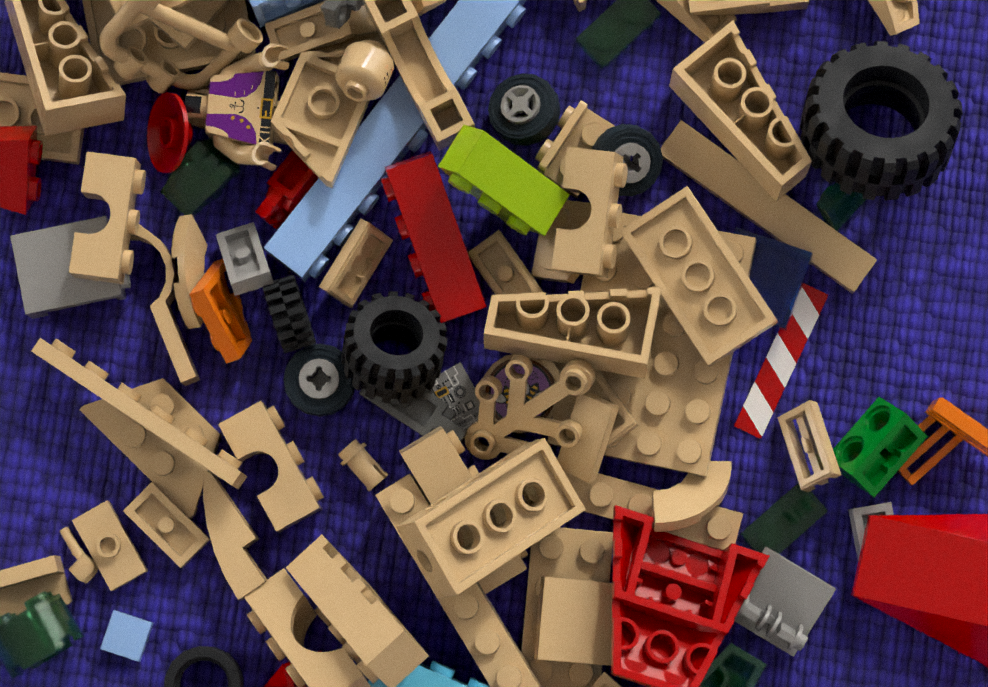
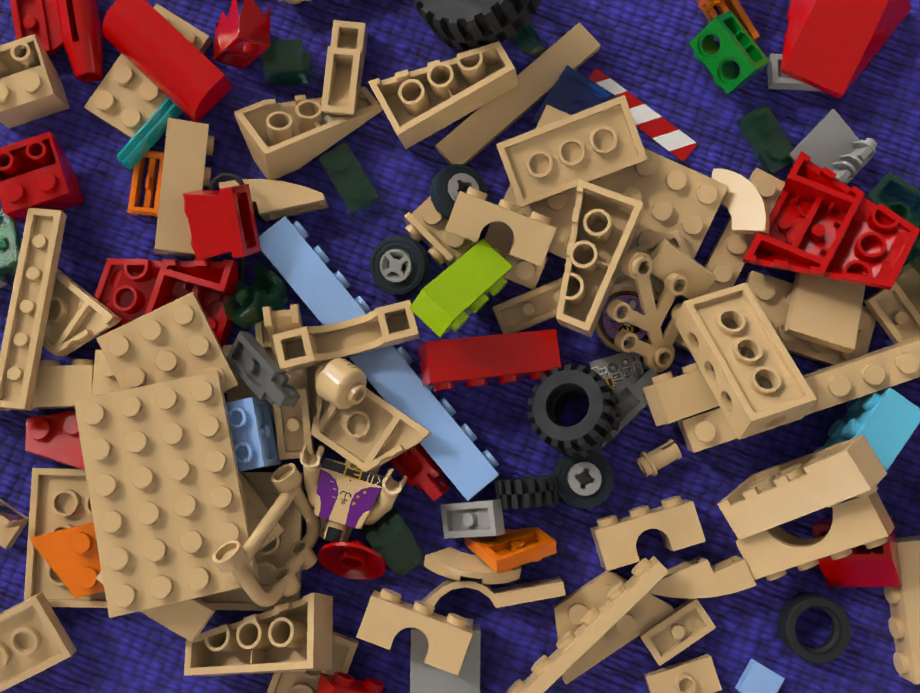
camera: 80 degrees left, 0 degrees up
(356, 263) = (494, 428): tan plate -> none
(815, 443) = (717, 91): tan tile -> none

